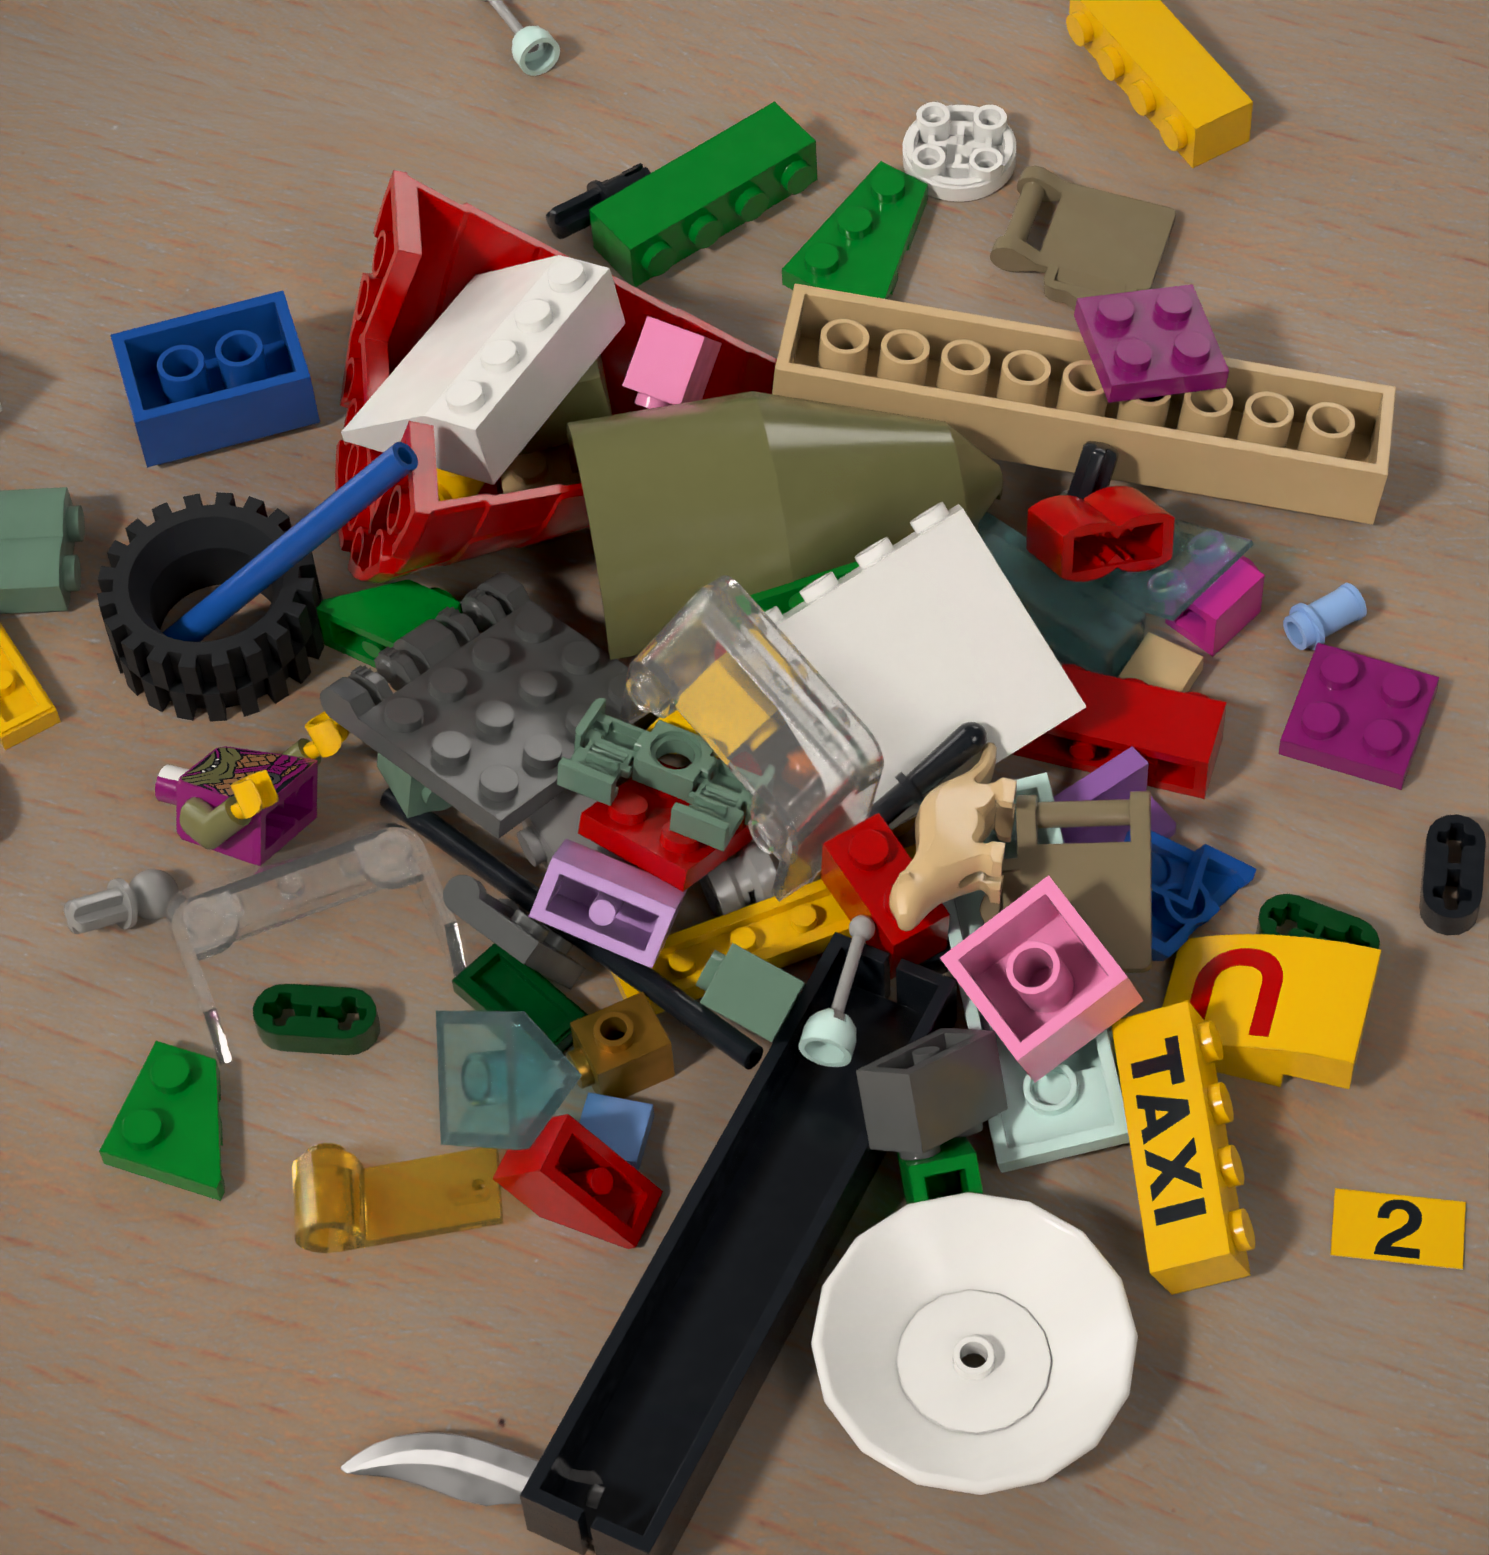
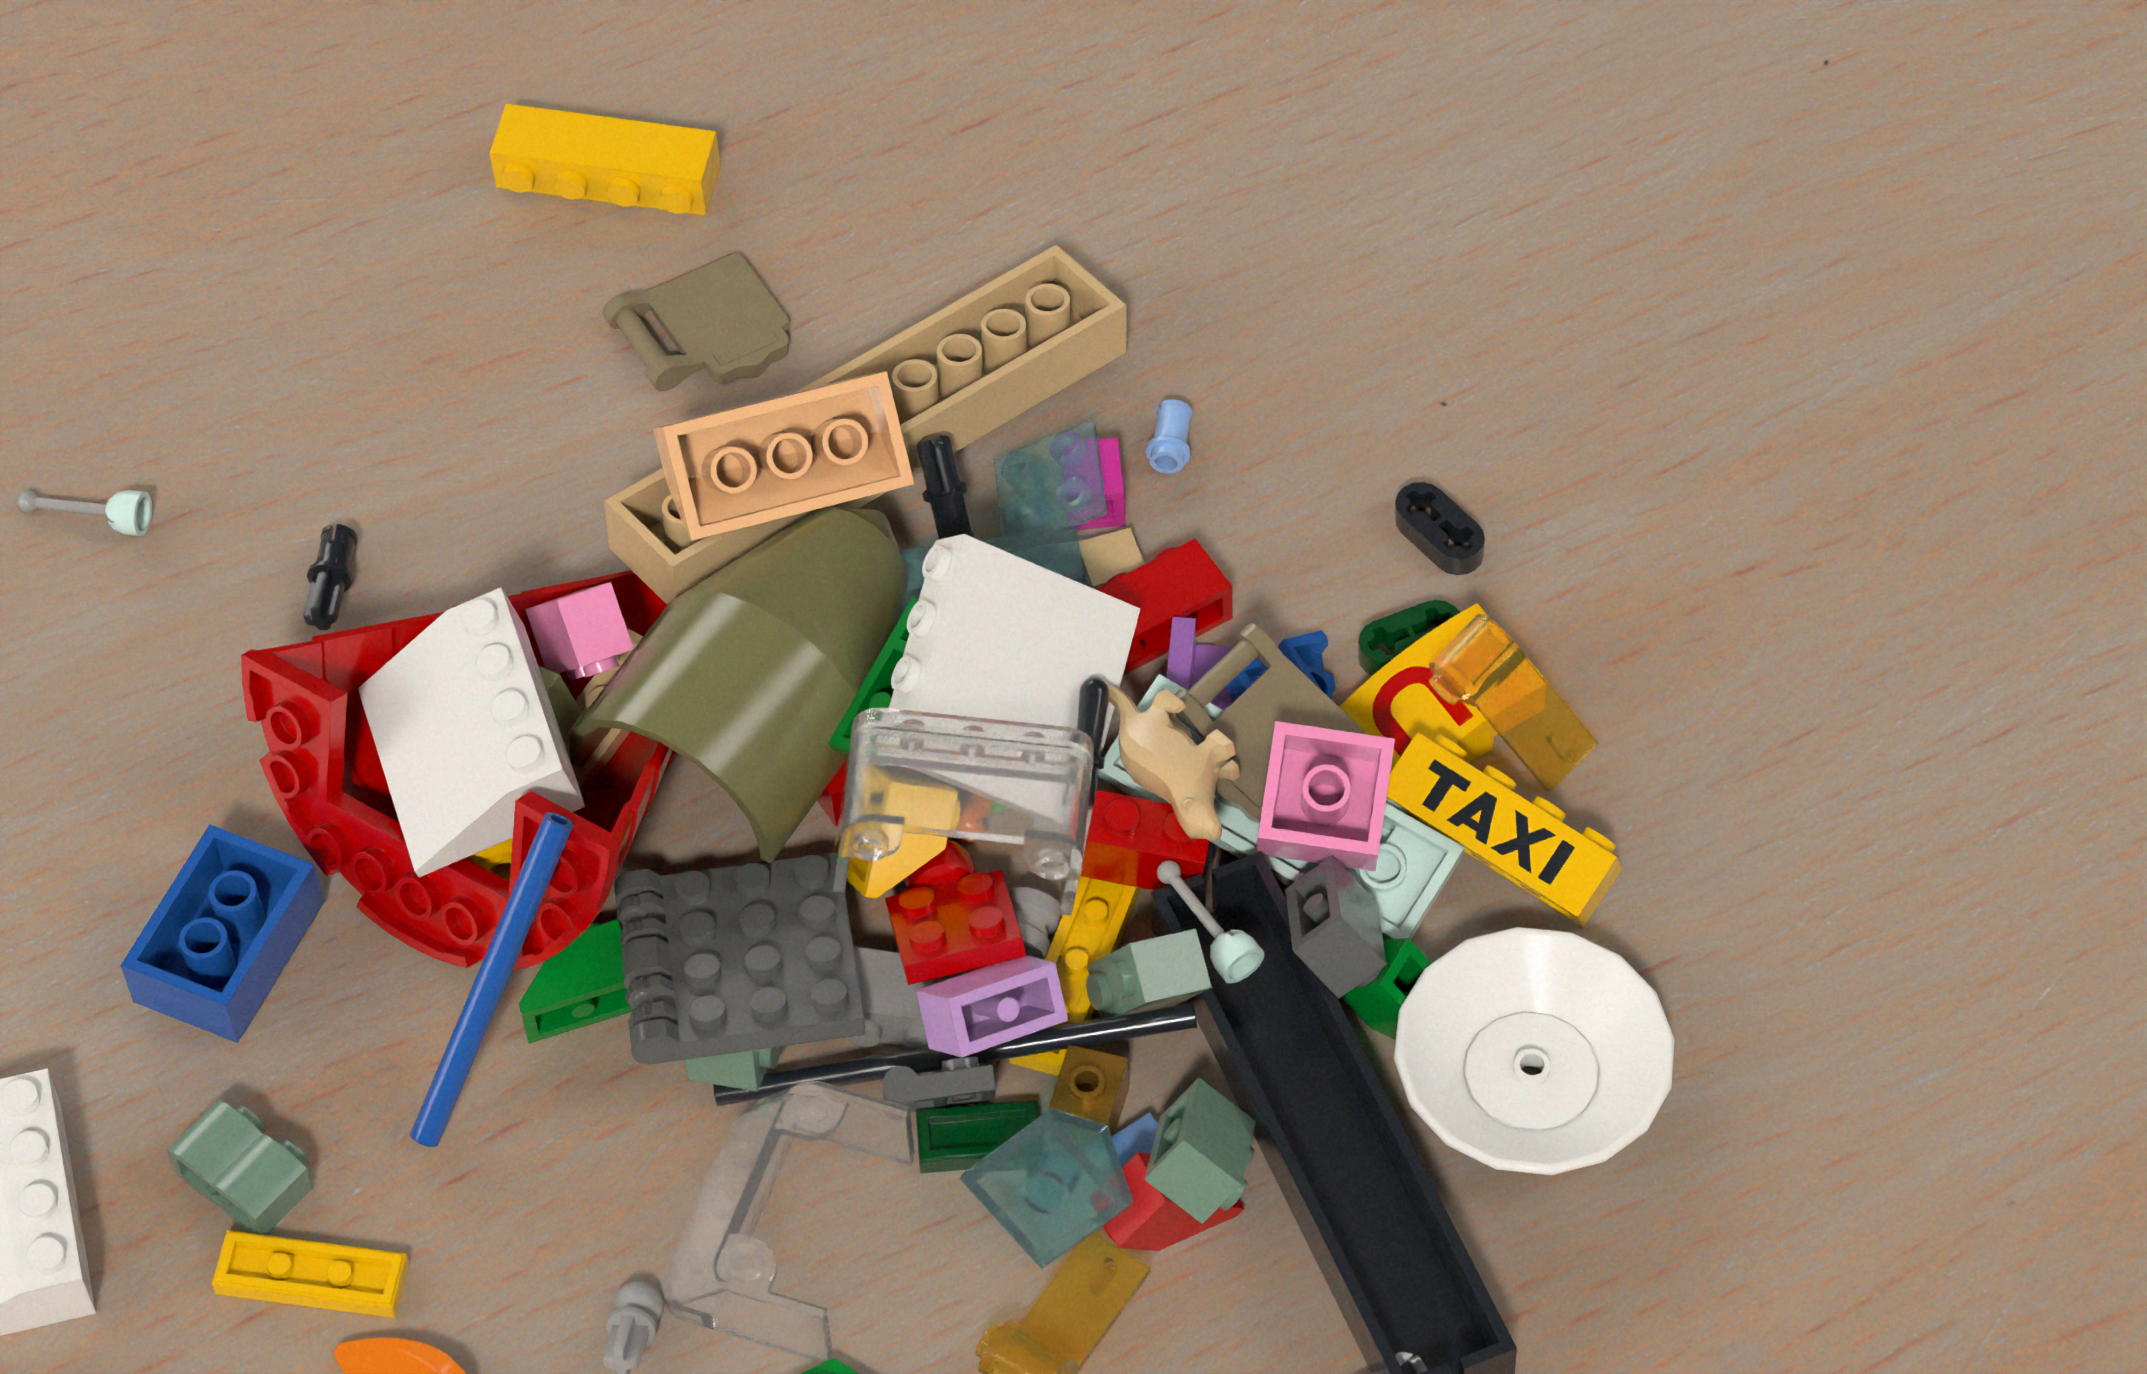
camera: 50 degrees left, 0 degrees up
(189, 553) = (418, 1022): black tyre -> none
(247, 798) = (643, 1172): torso -> none
(316, 1019) = (856, 1267): dark green beam -> none
(614, 748) = (880, 904): sand green piece -> none
(623, 1163) = (1201, 1152): none -> sand green brick
(704, 194) = (402, 510): green brick -> none
(864, 237) = (553, 453): green wing -> none
(951, 355) = (784, 455): none -> light nougat slope
(960, 150) = (536, 333): white tile -> none
(1100, 533) = (997, 494): red brick -> none
(1151, 343) = (882, 334): magenta plate -> none
(1311, 1054) = (1498, 679): none -> clear yellow door
(1359, 716) = (1264, 481): magenta plate -> none
(1398, 1228) = (1659, 767): yellow sticker -> none

